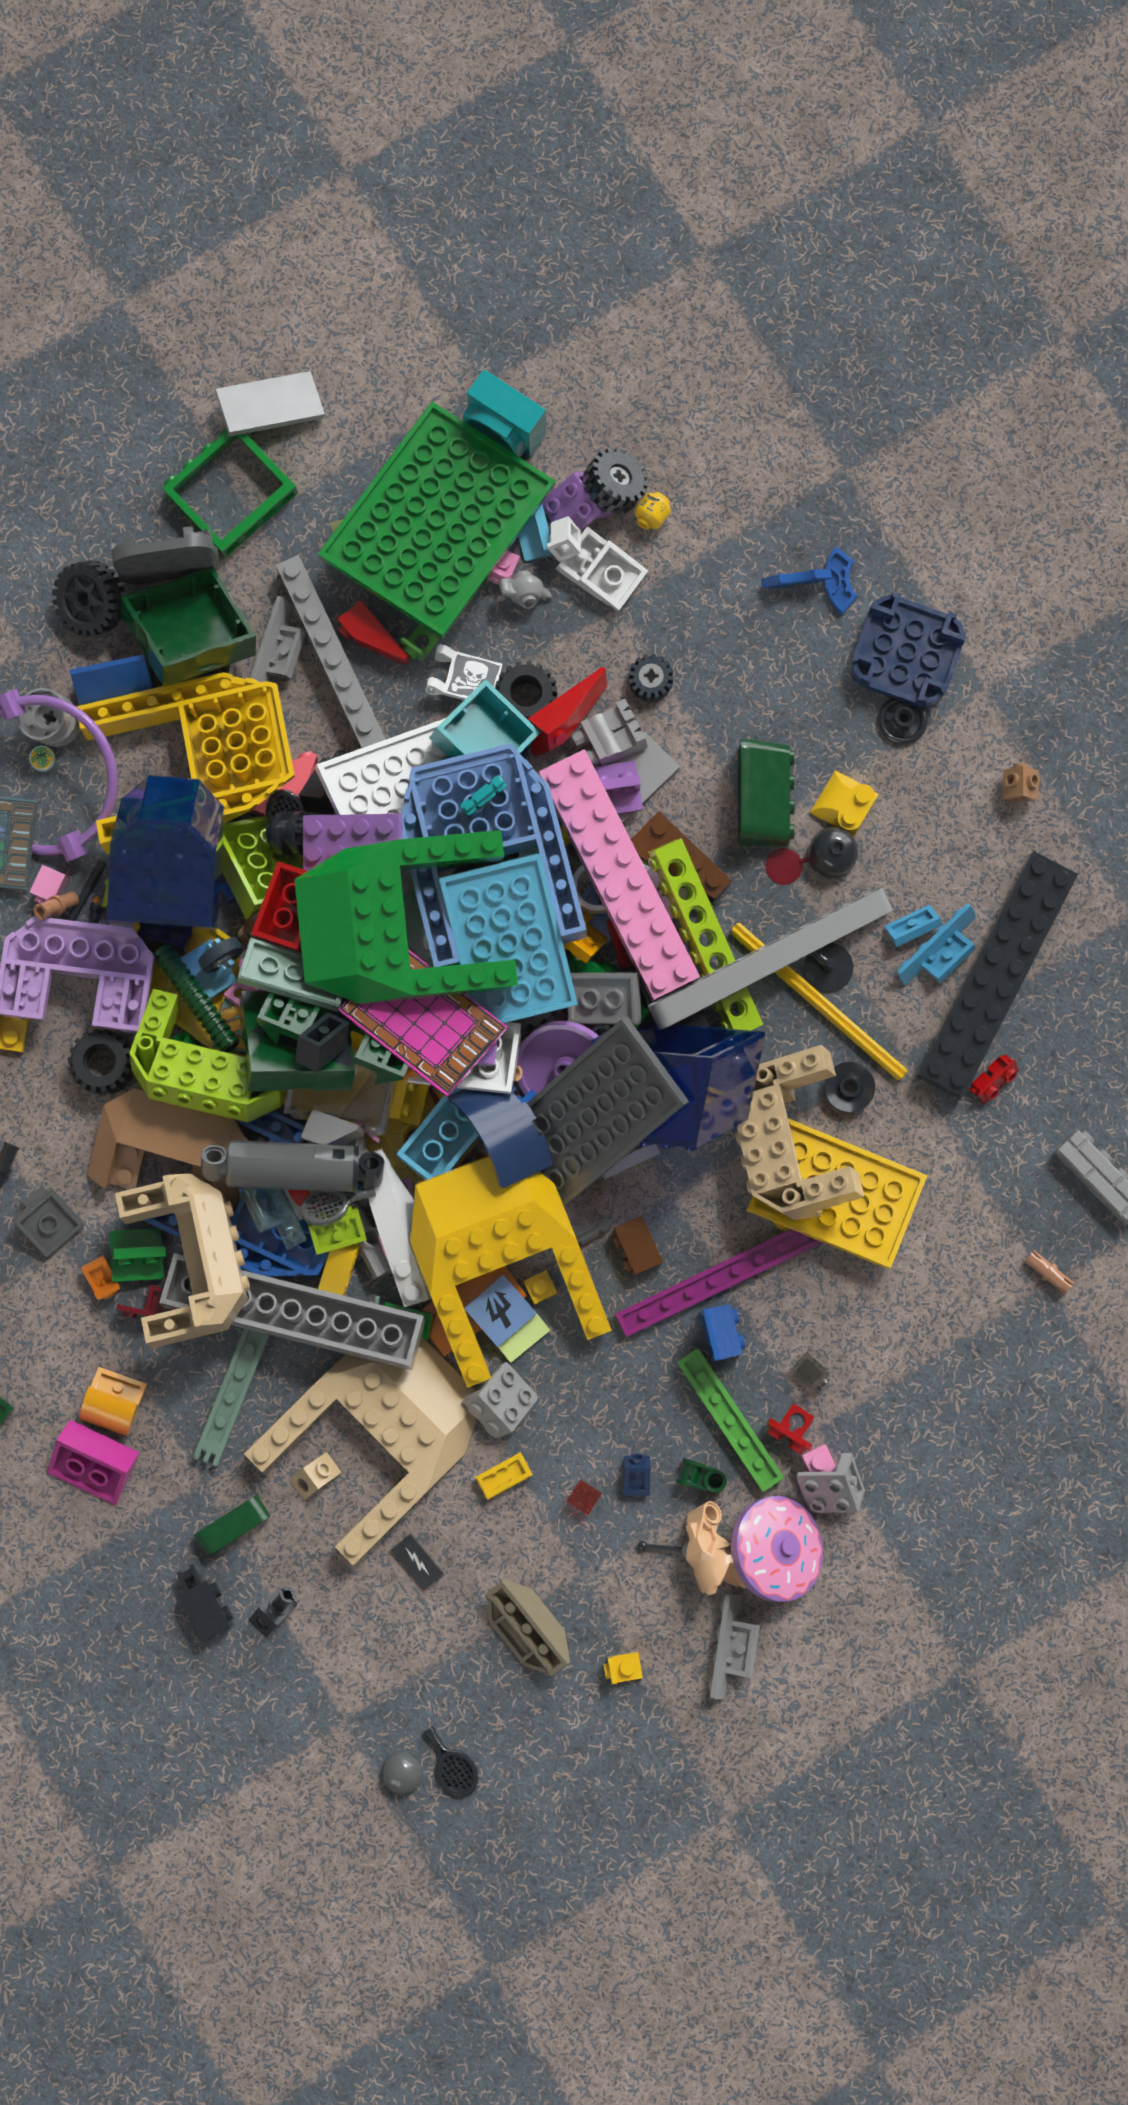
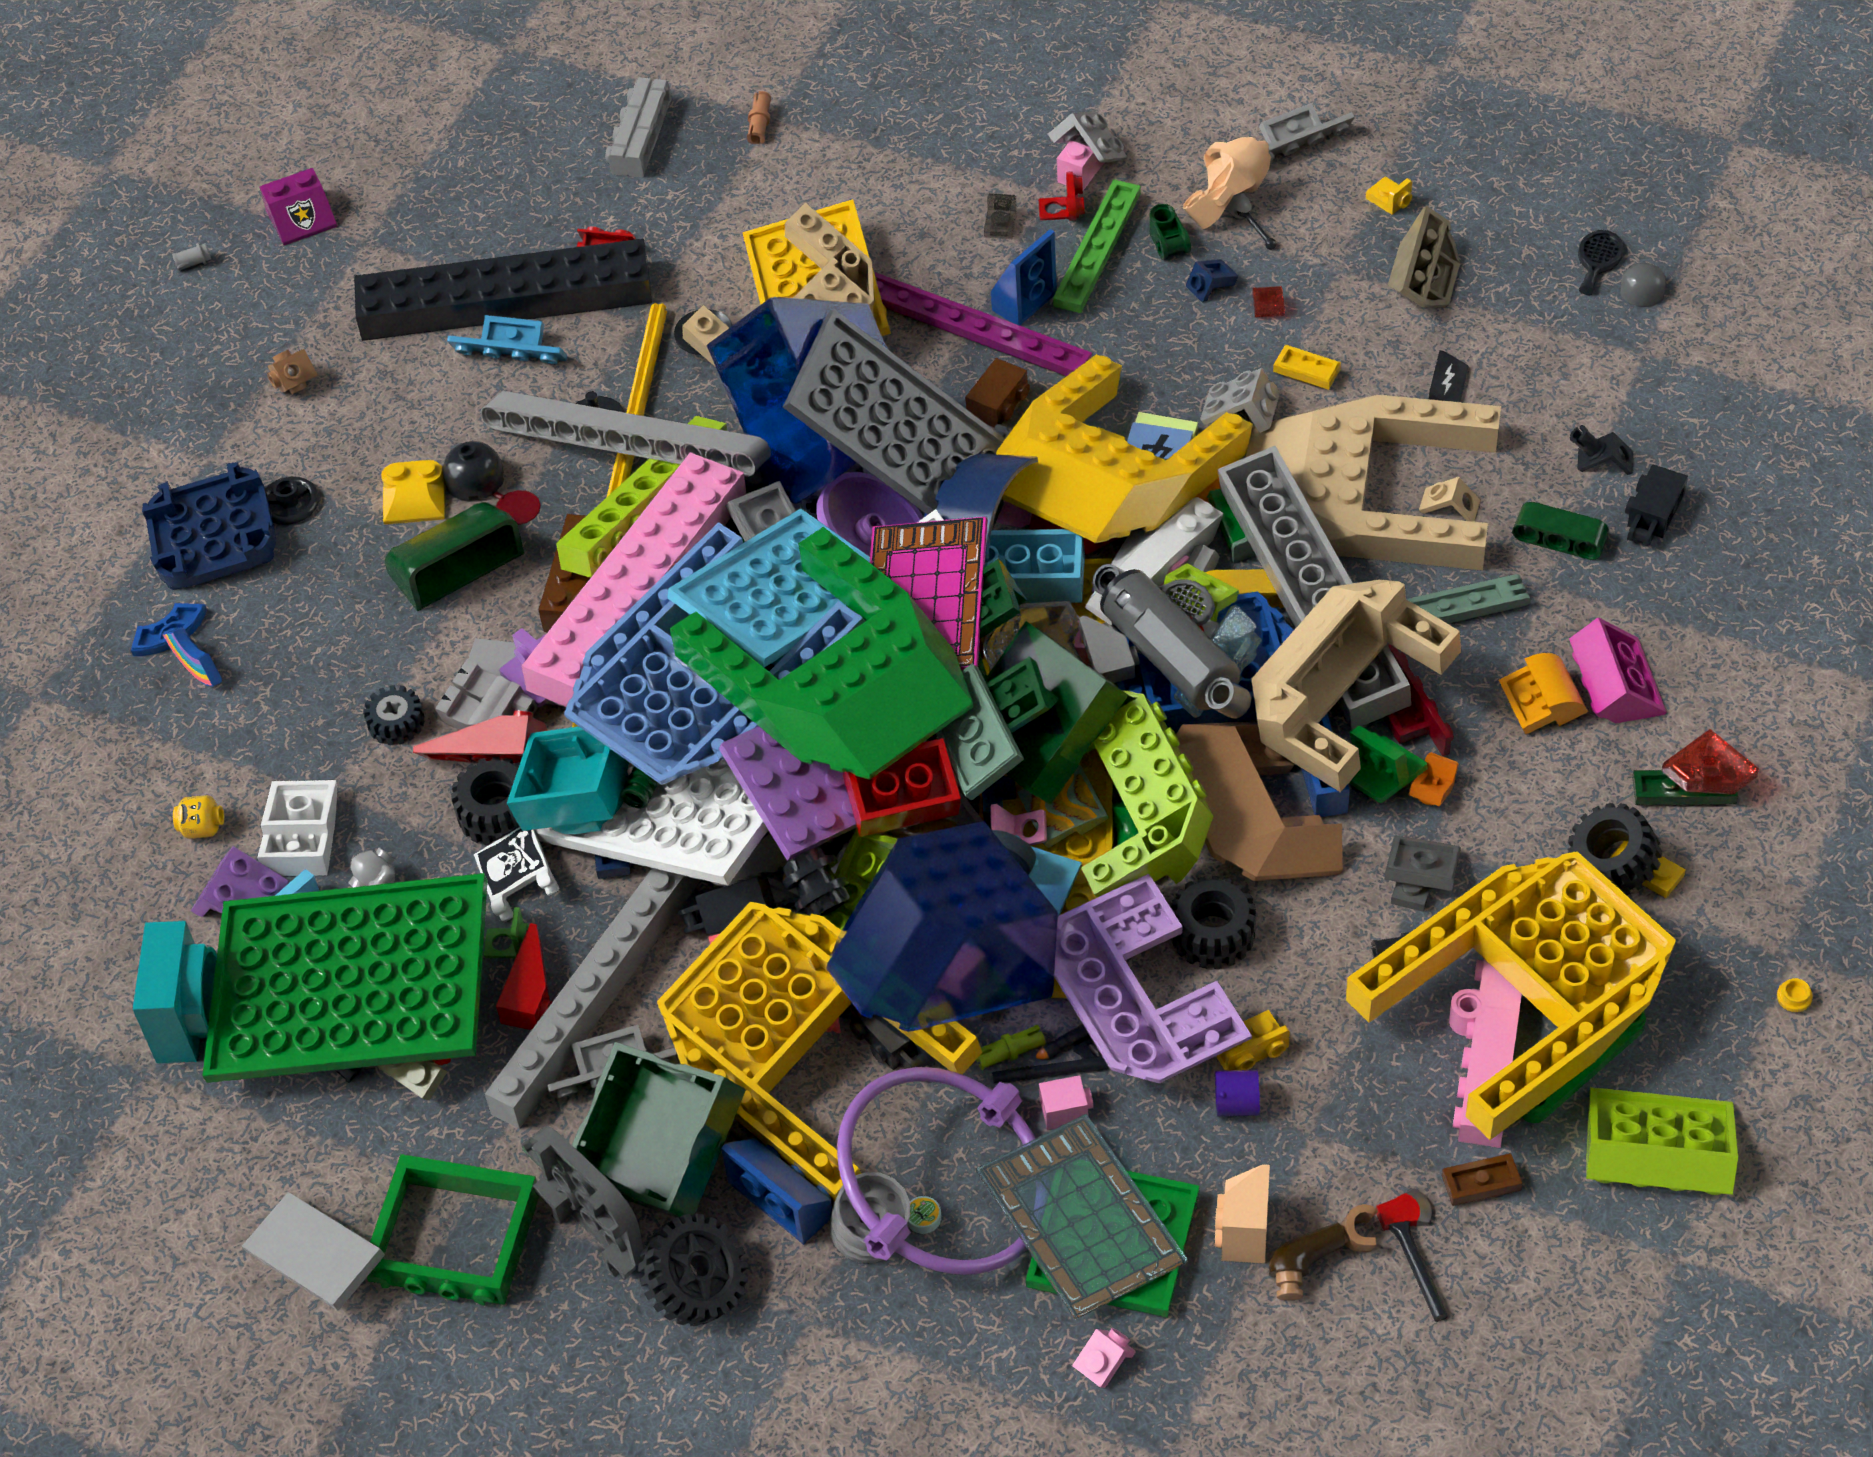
camera: 120 degrees left, 30 degrees down
(56, 905) = (1081, 1061): nougat pin -> none
(196, 998) = (1074, 841): dark green piece -> none
(323, 1041) = (1018, 641): black brick -> none
(483, 795) = (642, 691): teal axle -> none
(564, 539) = (286, 861): white brick -> none
(606, 489) = (185, 858): bush -> none
(777, 1549) = (1181, 138): dish -> none
(913, 925) = (501, 373): dark azure plate -> none

